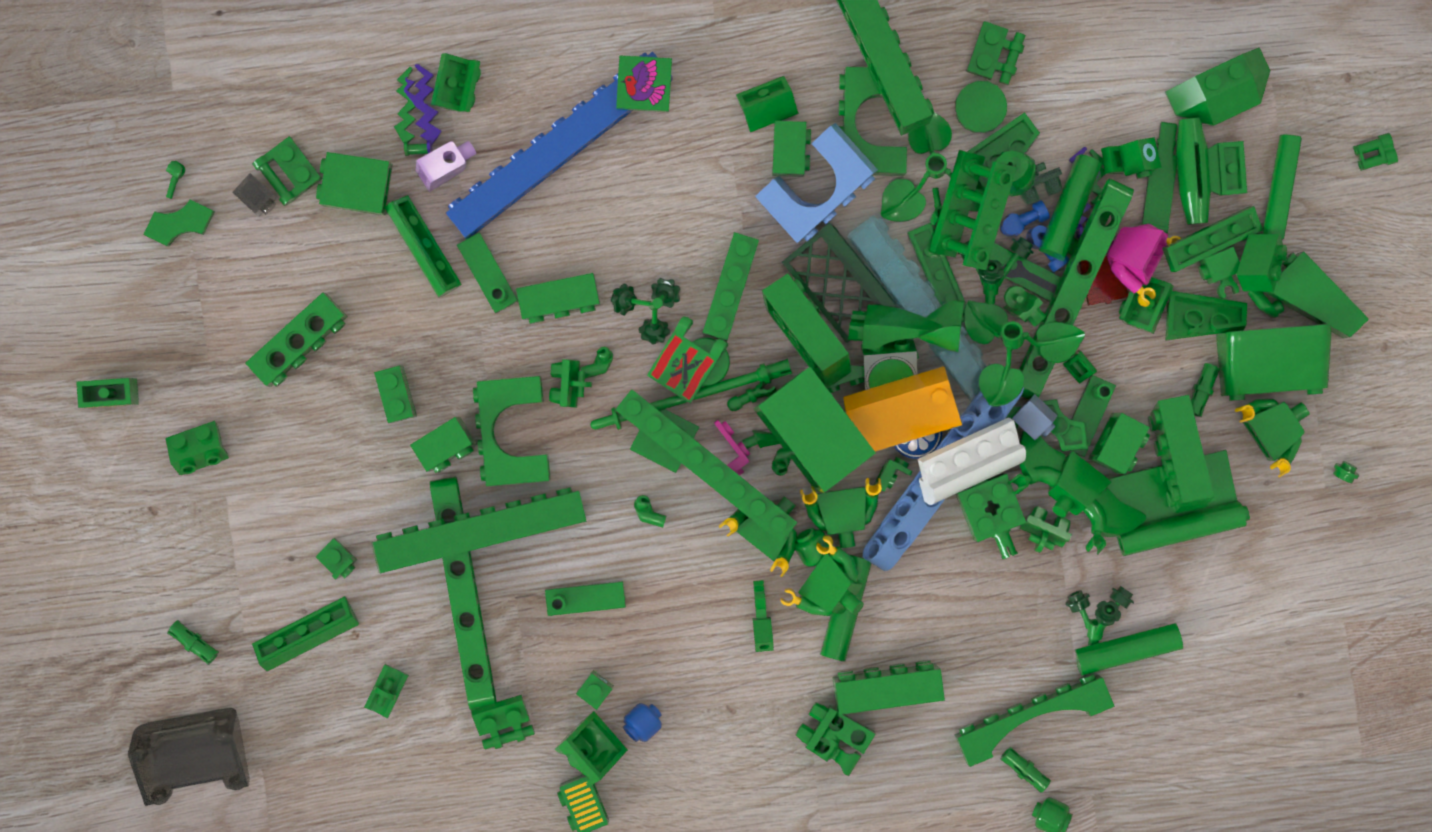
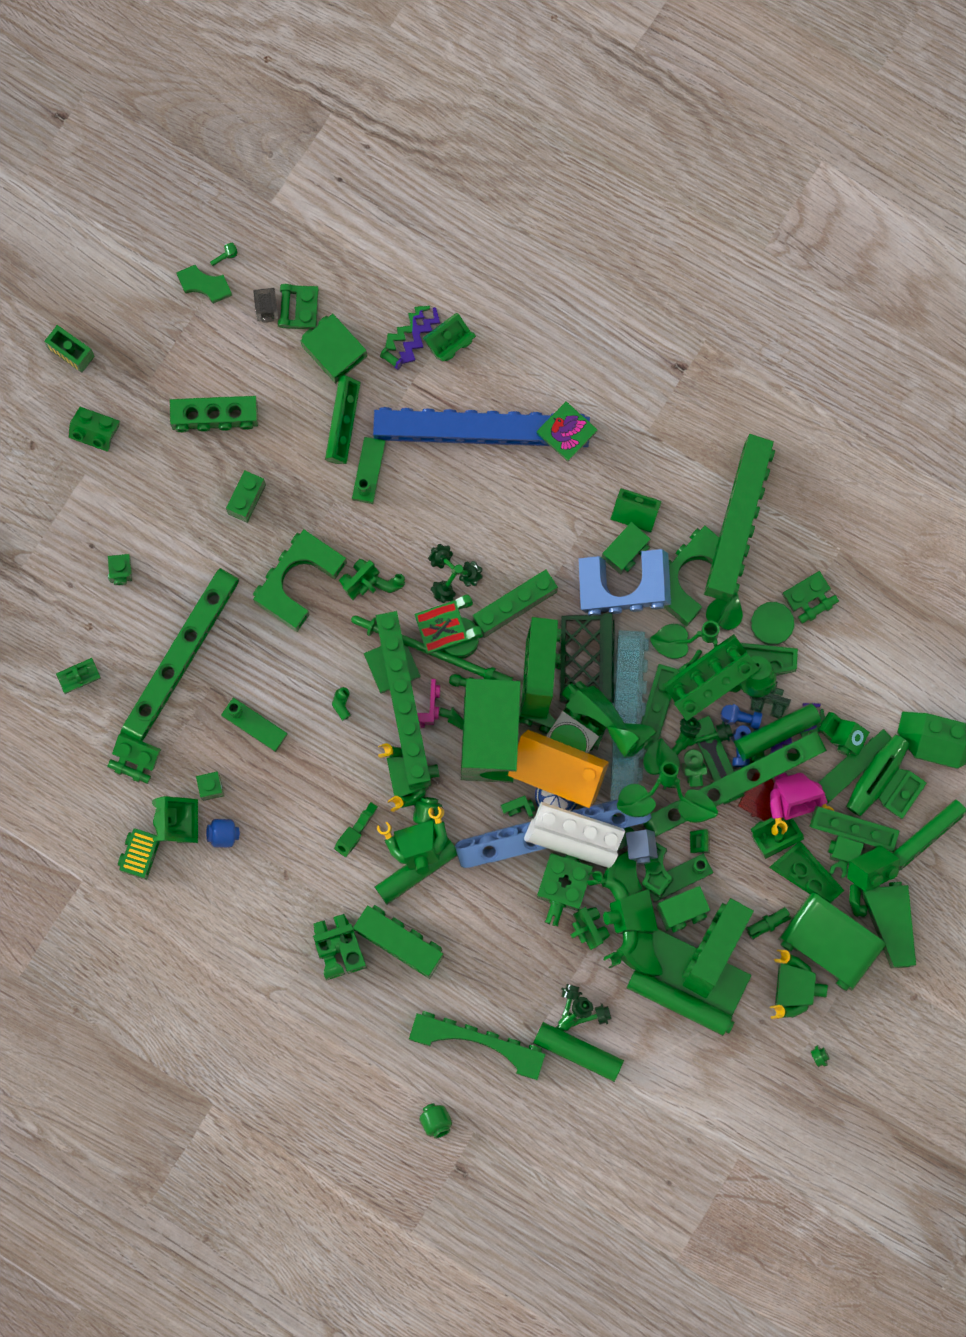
camera: 35 degrees right, 10 degrees down
(305, 634) = (58, 600): green slope -> none
(435, 171) = (391, 379): lavender torso -> none
(444, 444) = (249, 551): green brick -> none
(478, 531) = (224, 621): green brick -> none
(558, 298) = (400, 521): green brick -> none
(781, 461) = (454, 742): green arm -> none
(843, 510) = (466, 804): green torso -> none
(1025, 769) = (444, 1075): green pin -> none

